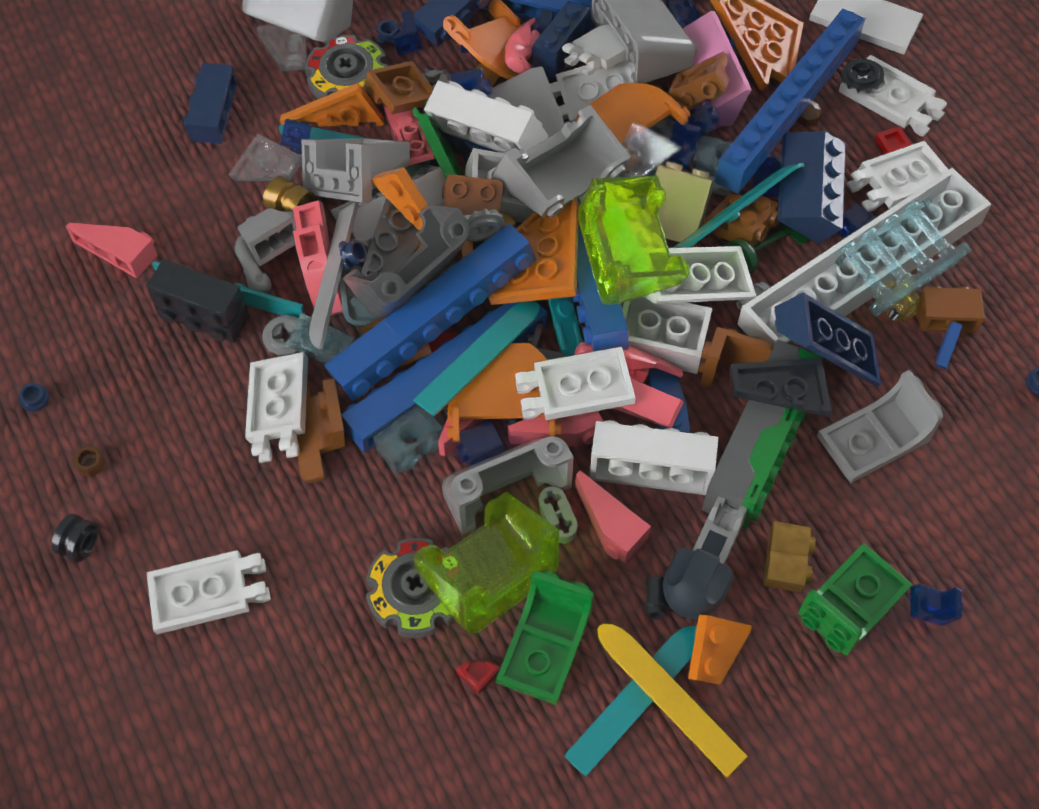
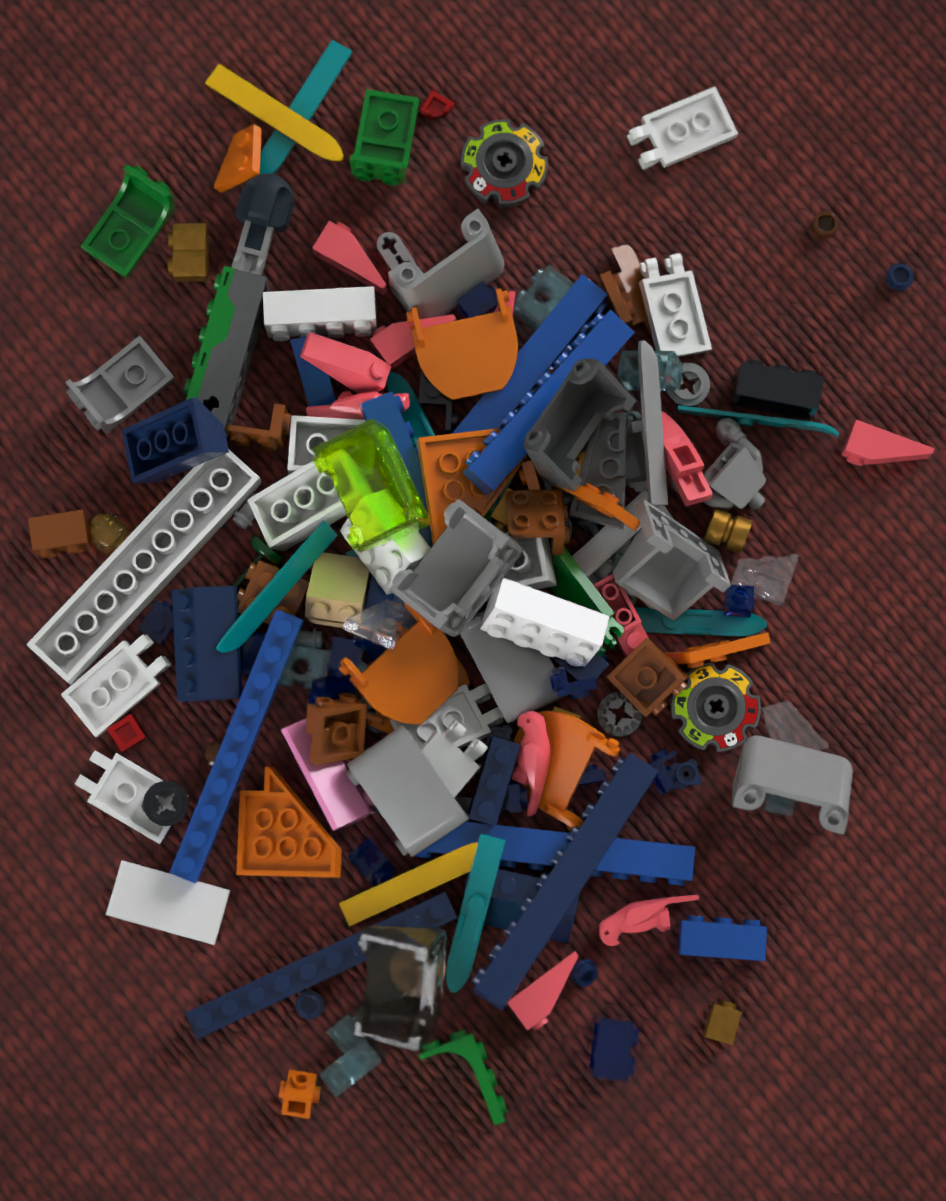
camera: 165 degrees right, 20 degrees up
(75, 537) = (808, 147): black wheel -> none
(210, 103) = (846, 637): dark blue brick -> none
(352, 253) = (636, 440): dark blue plate -> none
(477, 357) = (497, 366): teal piece -> none
(484, 224) = (519, 480): light grey gear -> none
(491, 565) = (446, 186): clear neon green windscreen -> none
(577, 385) = (397, 353): white tile -> none
(655, 606) = (300, 197): black pin -> none
(783, 383) = (213, 379): black wing -> none
(906, 281) = (104, 532): clear light blue fence -> none
(935, 605) = (60, 233): clear blue bracket -> none
(947, 345) = (61, 486): blue tile -> none

